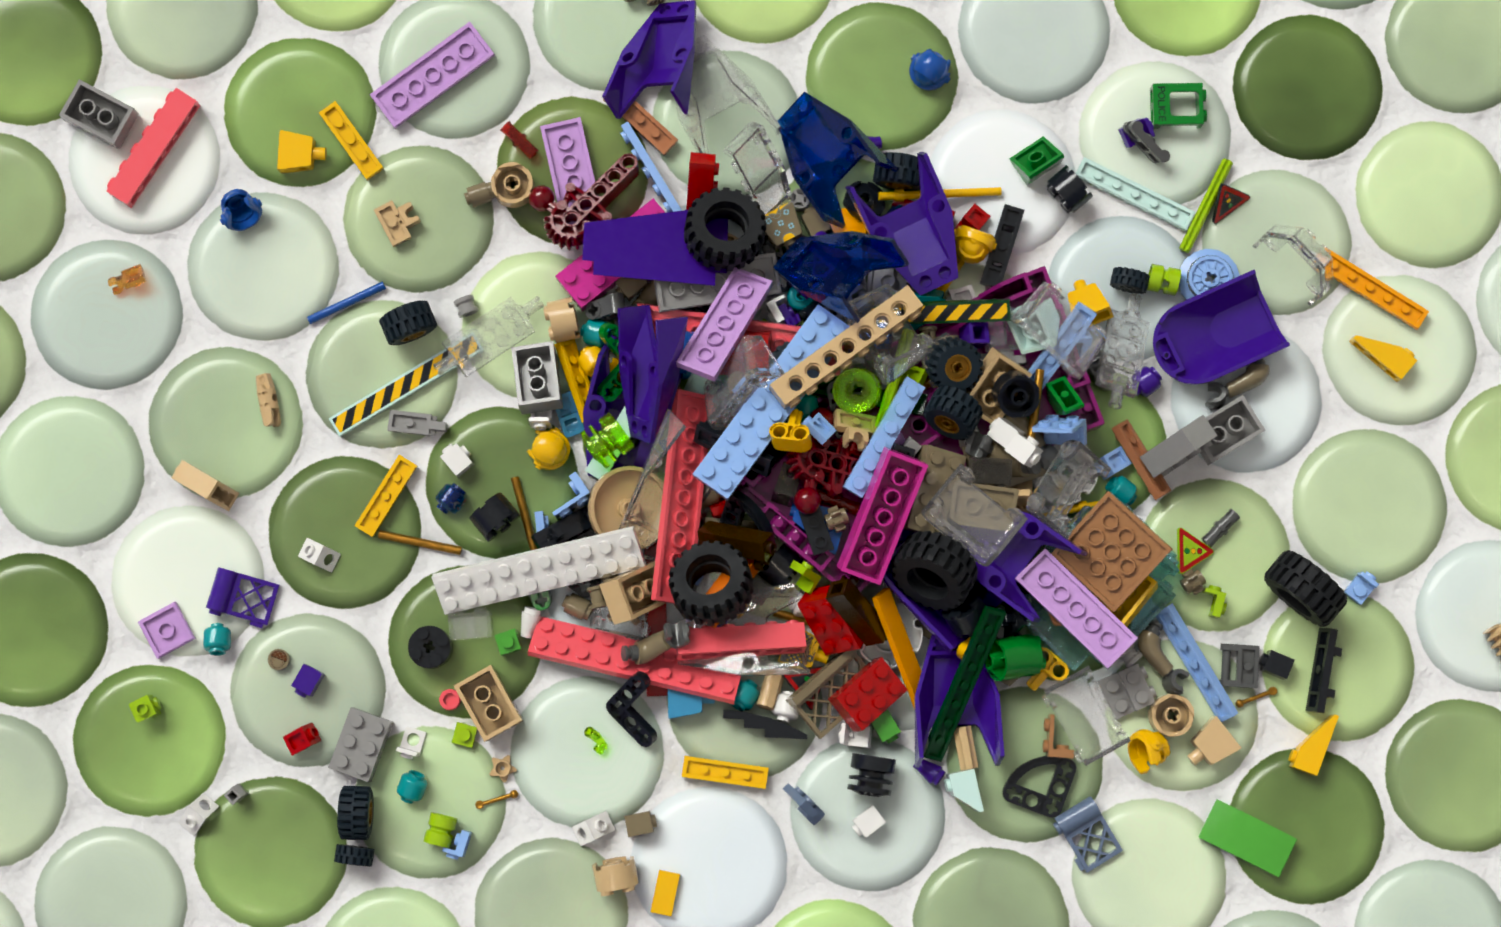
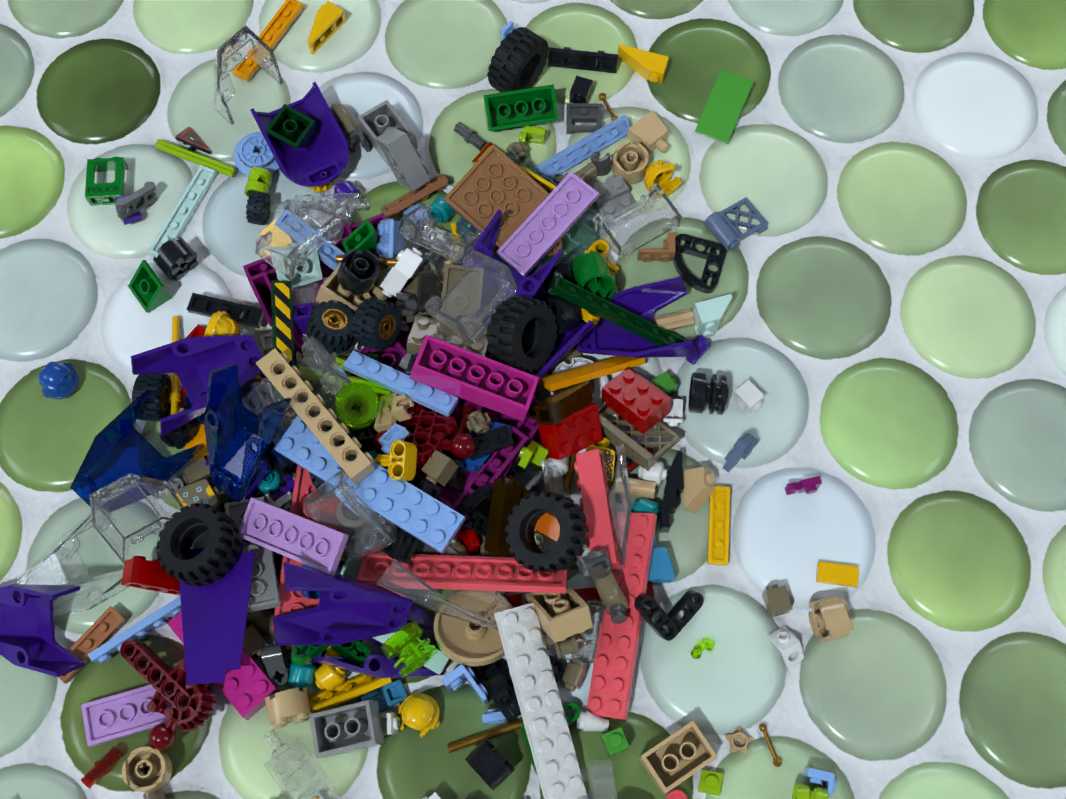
camera: 90 degrees left, 15 degrees down
(762, 874) = (807, 485): none -> magenta plate
(766, 752) = (697, 487): none -> tan slope
(783, 475) = (439, 468): none -> dark tan brick
(1229, 316) = (292, 127): none -> dark green slope
(1246, 589) = (520, 107): none -> green slope

